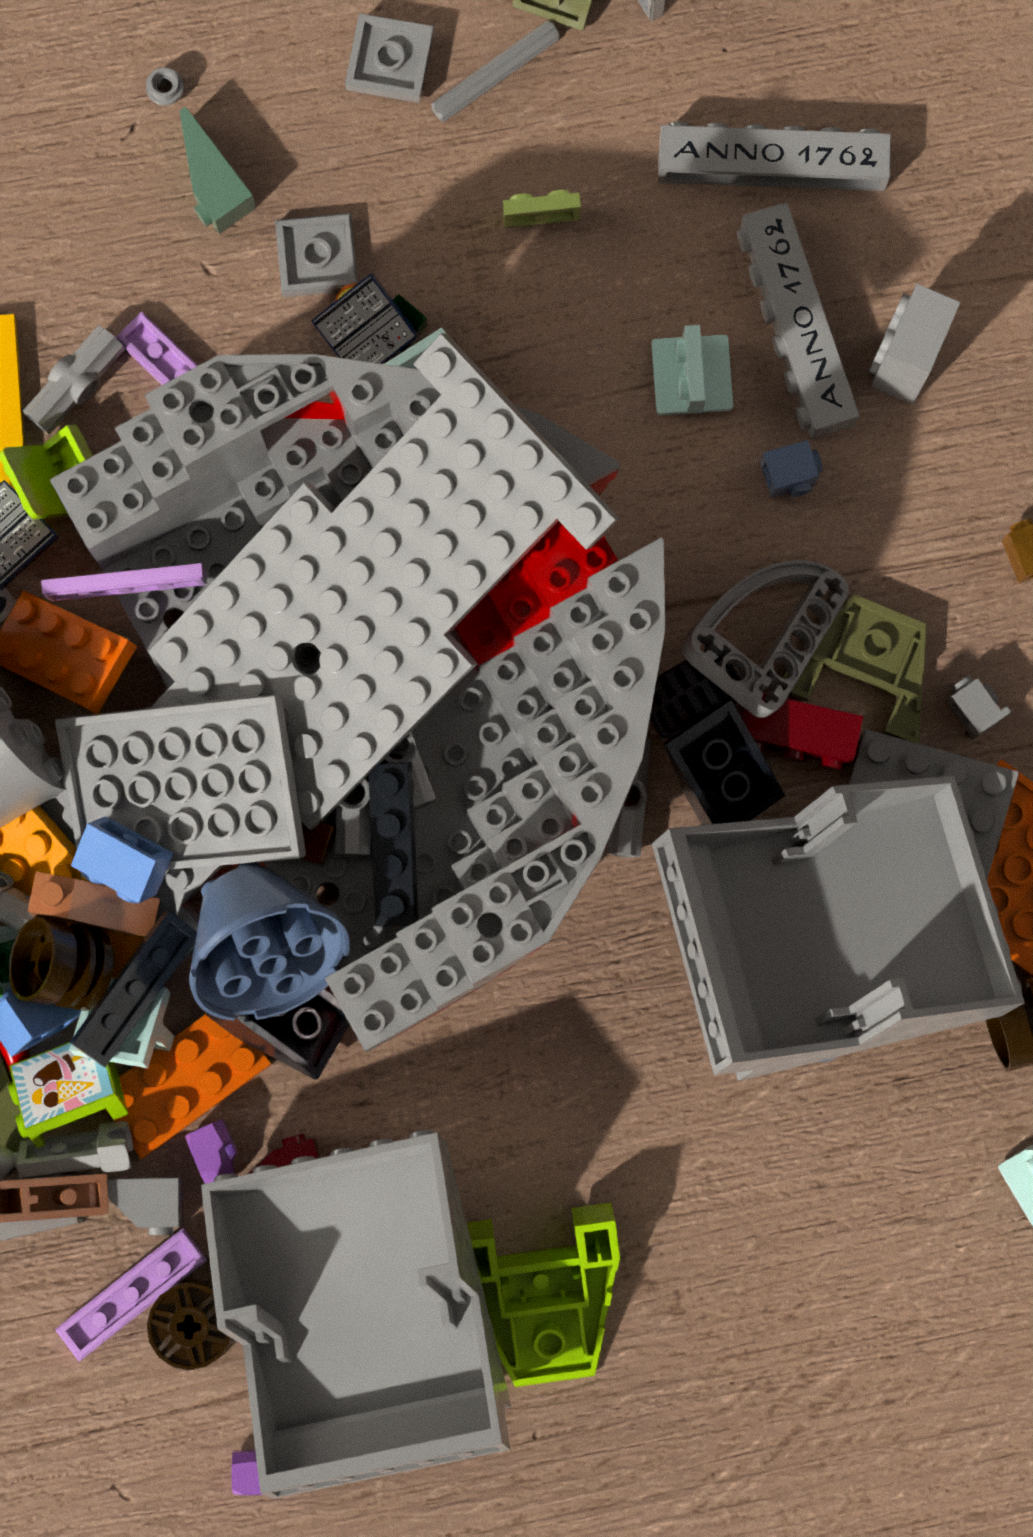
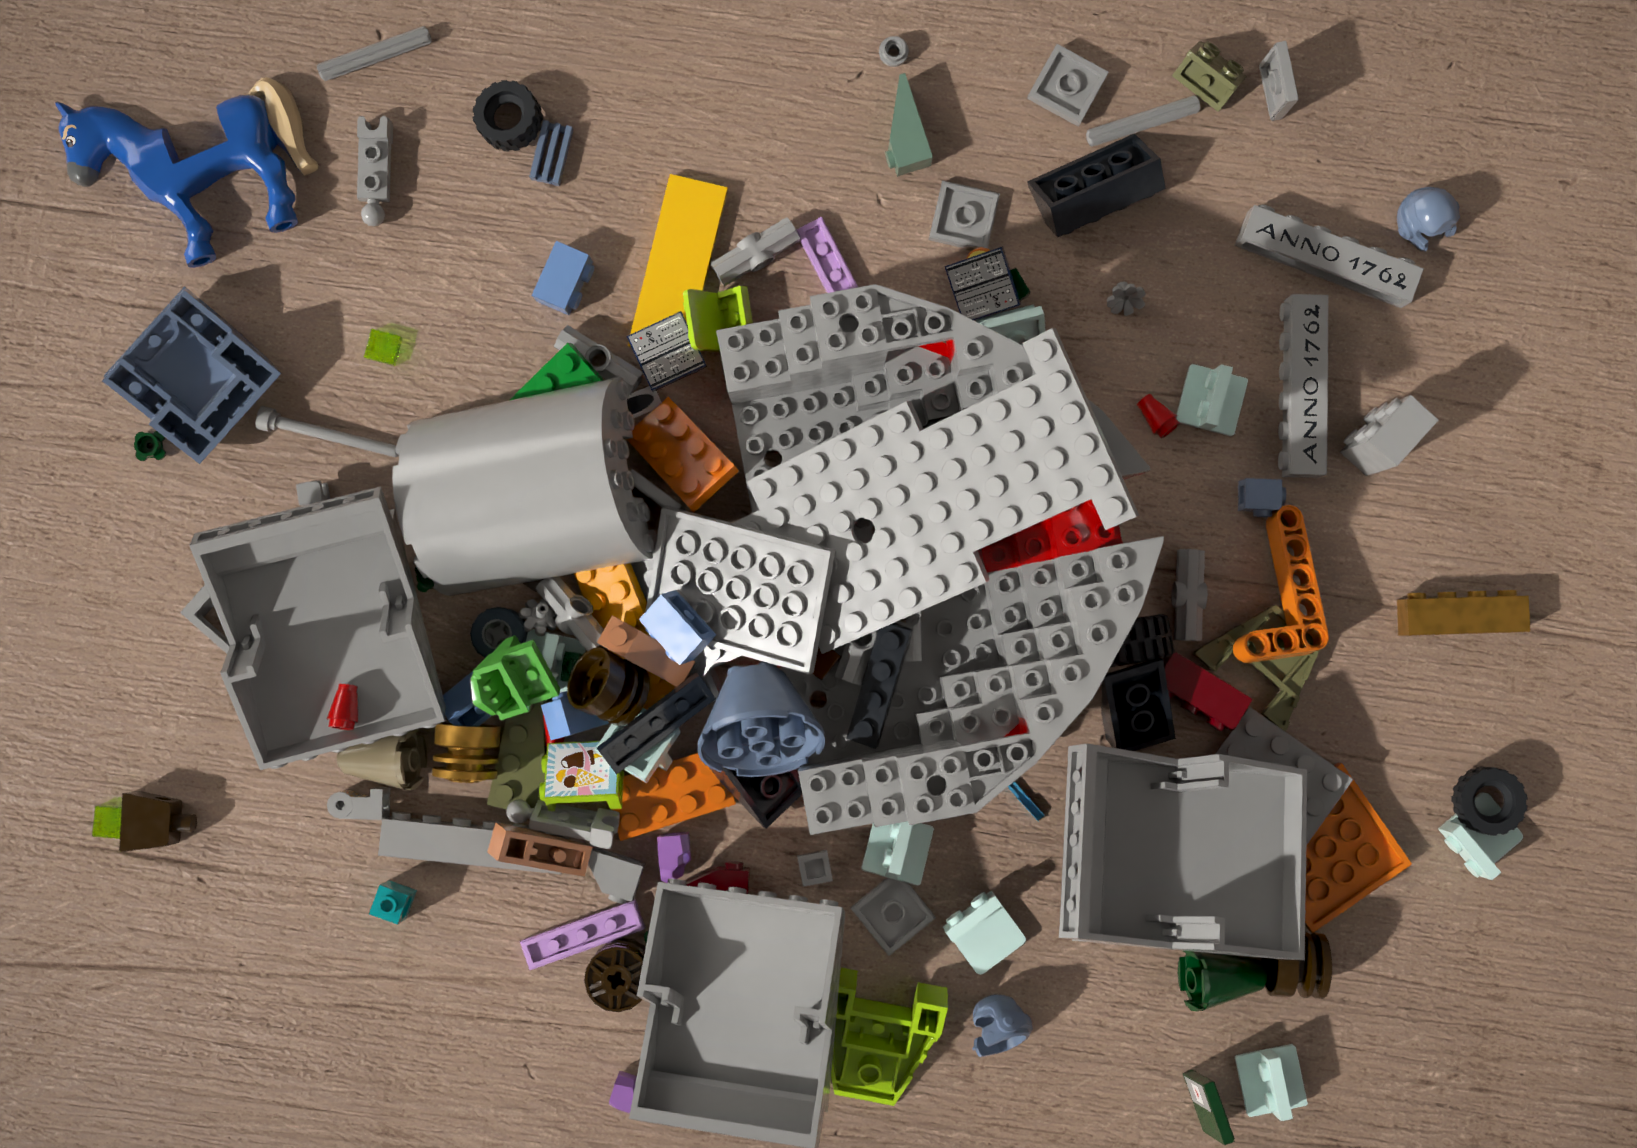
camera: 20 degrees right, 5 degrees up
(38, 709) = (653, 492): none -> light grey tile
(124, 582) = (745, 421): lavender tile -> none
(396, 1109) = (815, 868): none -> light grey plate
(465, 164) = (1097, 184): none -> black slope
(490, 1048) = (898, 851): none -> light aqua bracket
(512, 1133) = (892, 913): none -> light grey tile
(529, 210) = (1153, 240): yellowish green plate -> none
(545, 286) = (1126, 297): none -> light grey plant
(615, 929) = (1026, 801): none -> dark azure piece
(633, 1117) = (984, 932): none -> light aqua bracket
(634, 416) = (1159, 417): none -> red cone
(692, 1223) = (1002, 1025): none -> sand blue helmet
(748, 620) = (1189, 595): none -> light grey piece
(757, 678) = (1191, 648): light grey beam -> none
(868, 575) = (1291, 595): none -> orange beam
(875, 66) = (1427, 212): none -> sand blue helmet
(941, 1072) = (1218, 978): none -> dark green cone
(976, 706) = (1336, 718): light grey brick -> none
(982, 1236) = (1209, 1107): none -> dark green tile

